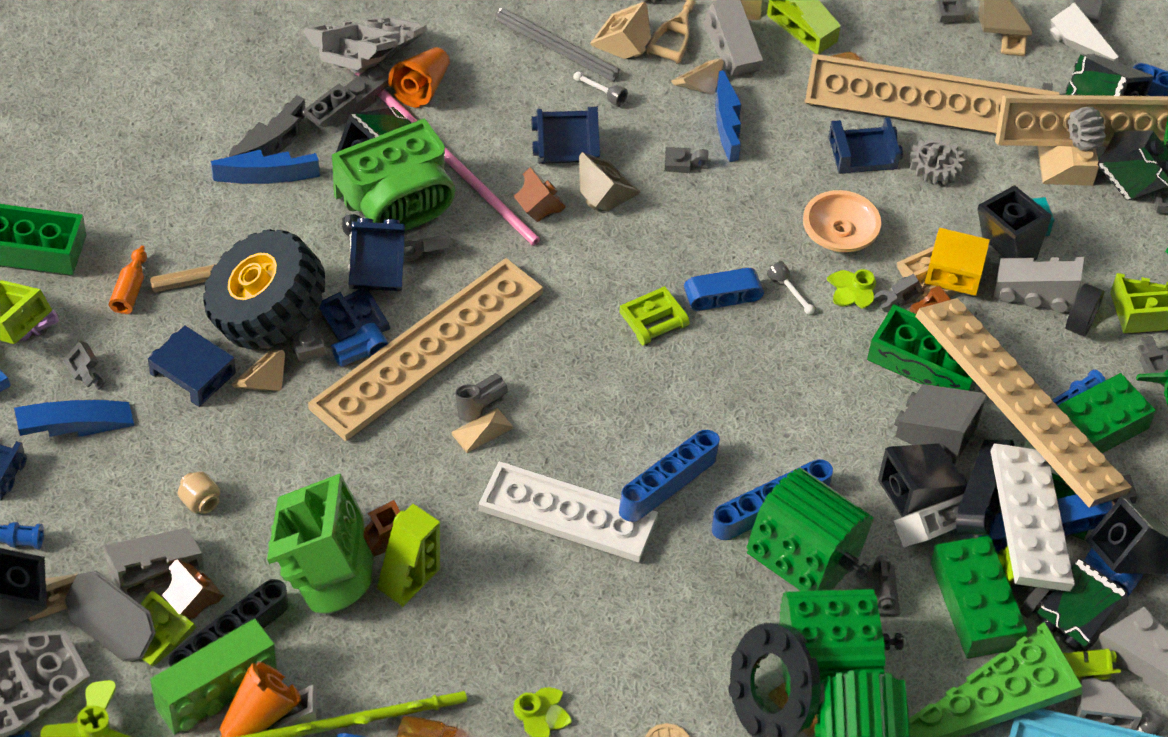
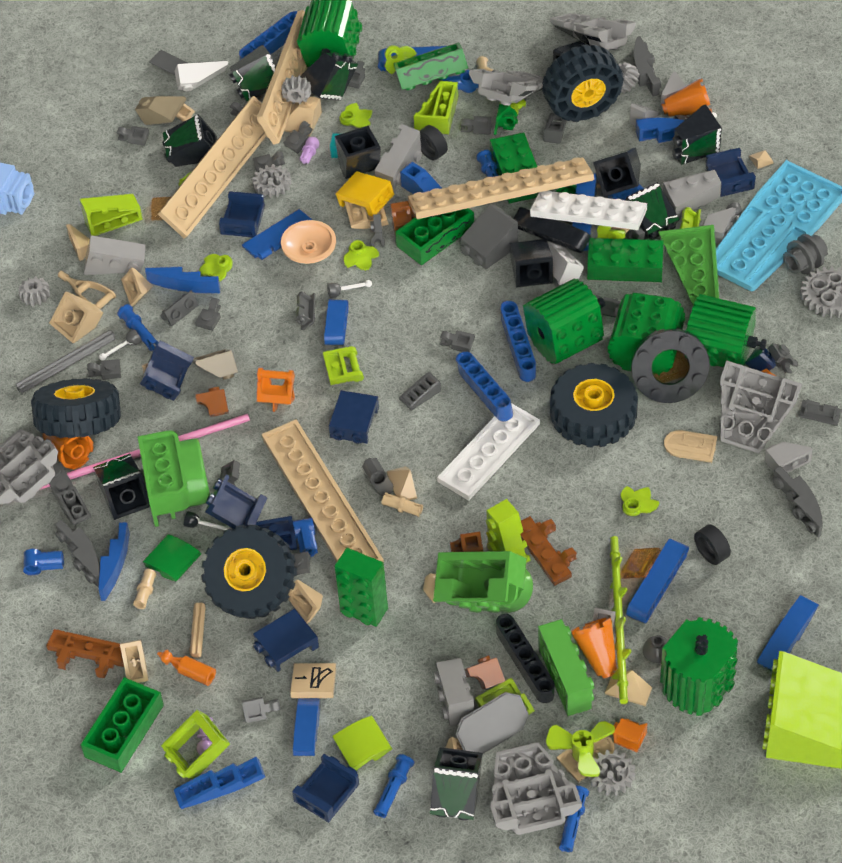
camera: 65 degrees left, 0 degrees up
(58, 485) = (362, 742): none -> lime slope
(121, 227) = (134, 661): none -> tan slope
(134, 167) = (72, 645): none -> dark orange hinge
(138, 410) = (313, 680): none -> tan tile
(199, 492) = (401, 655): tan head -> none
(235, 209) = (144, 589): none -> tan pin
(247, 102) = (36, 561): none -> blue piece
(264, 406) = (361, 587): none -> green brick
(291, 217) = (172, 557): none -> green slope
(406, 628) = (552, 563): none -> dark orange hinge
(444, 436) = (402, 504): none -> tan pin
(462, 58) = (76, 408): none -> black wheel
(558, 87) = (108, 369): none -> dark grey plate
(568, 344) = (353, 416): none -> dark blue panel
(575, 249) = (274, 393): none -> orange piece
(641, 88) = (133, 321): none -> blue pin
(646, 421) = (432, 388): none -> dark grey slope
(682, 126) = (180, 308): none -> dark grey hinge
(684, 613) = (593, 405): none -> black wheel
(719, 253) = (306, 311): none -> dark grey hinge
(746, 434) = (460, 341): none -> dark grey plate
(766, 144) = (216, 266): none -> lime plate
(827, 179) = (261, 244): none -> blue windscreen
(959, 54) = (188, 141): none -> black slope
(972, 150) = (261, 161): none -> dark grey plate
(1007, 314) = (417, 179): none -> blue slope
(1025, 168) = (297, 140): none -> dark grey plate
(1025, 184) = (309, 149): none -> lavender axle
(1101, 221) = (356, 117): none -> lime plate

